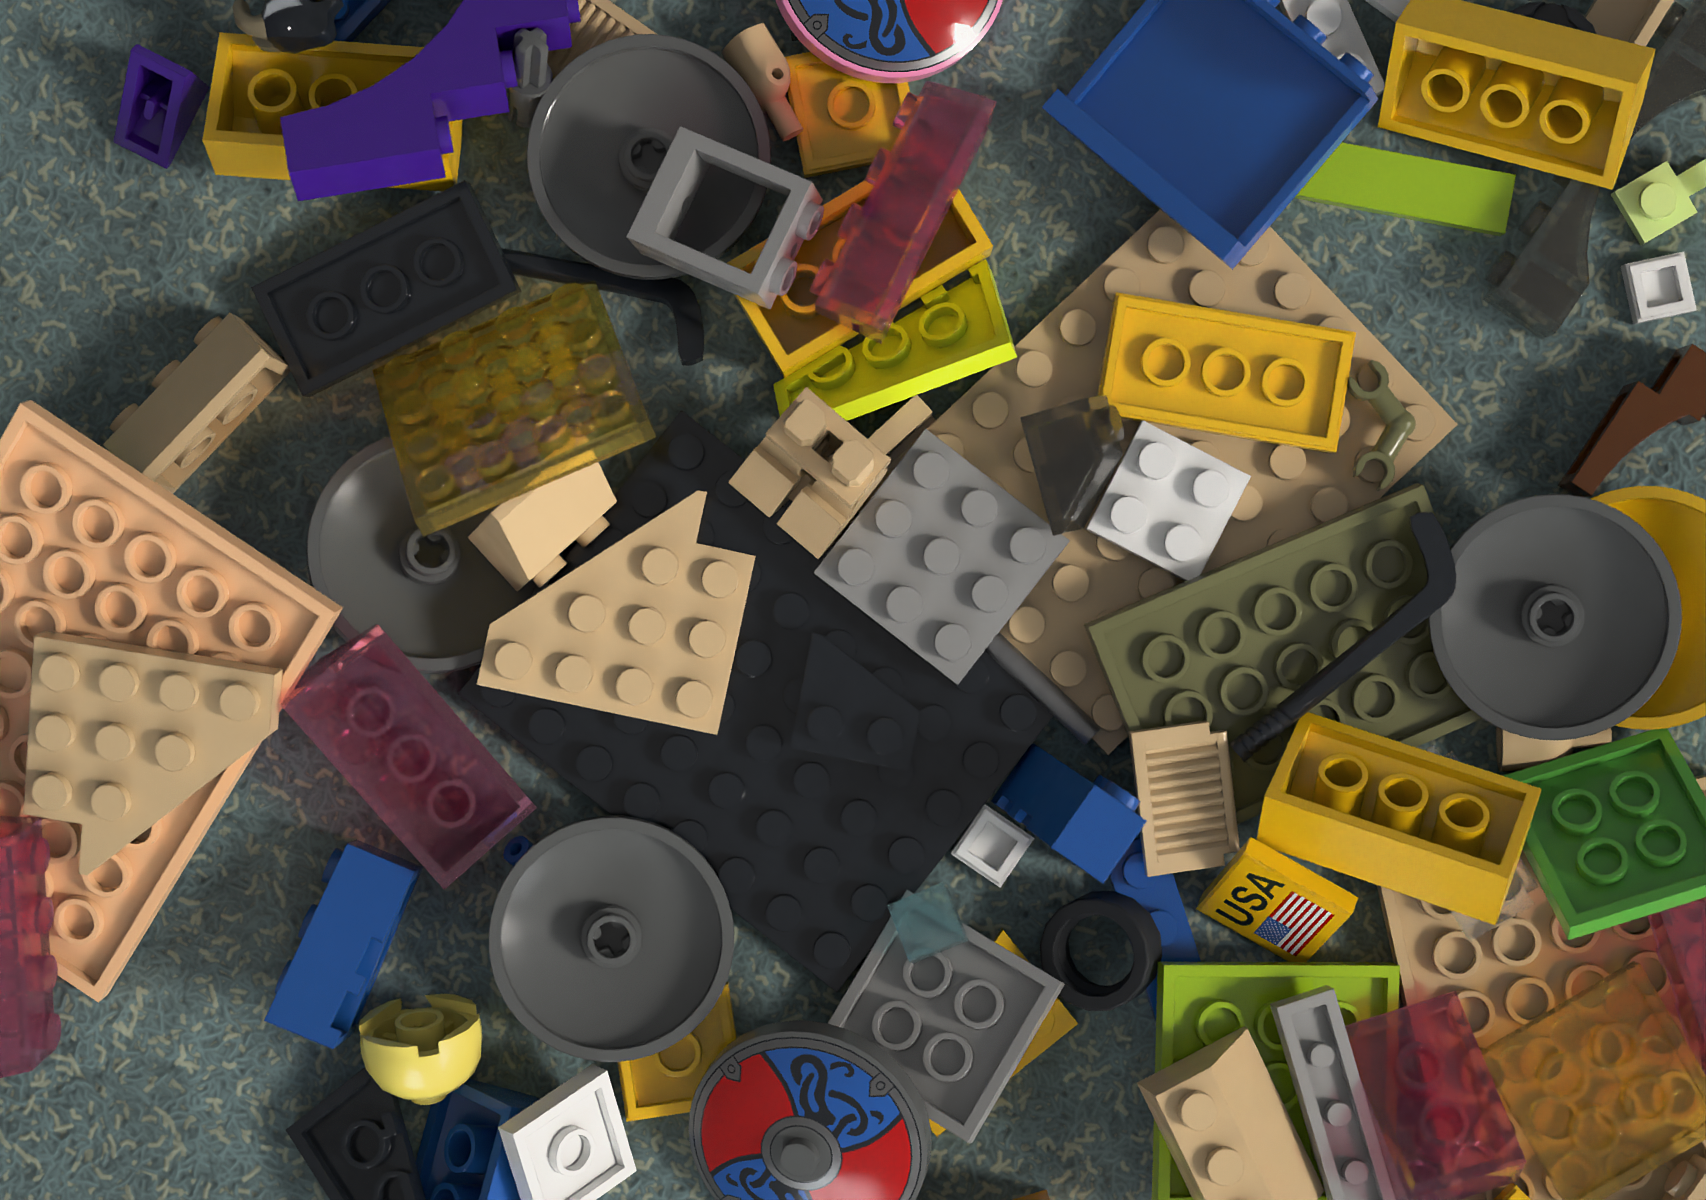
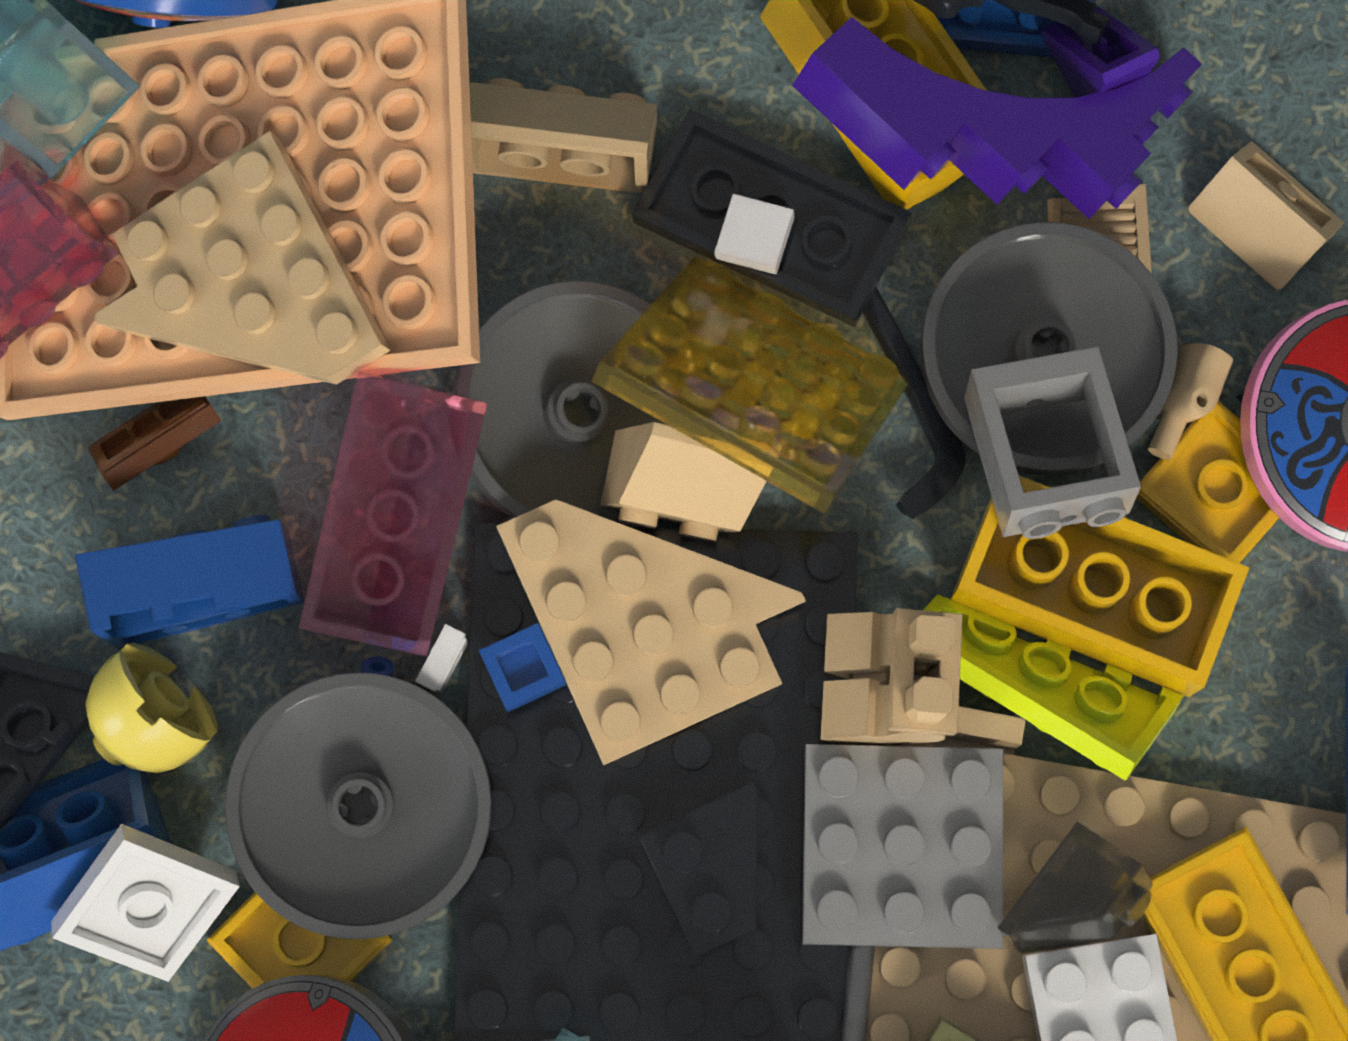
camera: 55 degrees right, 10 degrees down
(207, 895) = (151, 438): none -> reddish brown plate
(392, 315) = (754, 234): none -> white tile
(532, 75) = (1042, 199): dark grey axle -> none
(547, 796) = (442, 661): none -> white tile
(598, 741) = (522, 667): none -> blue plate
(903, 209) = (1178, 584): clear pink slope -> none

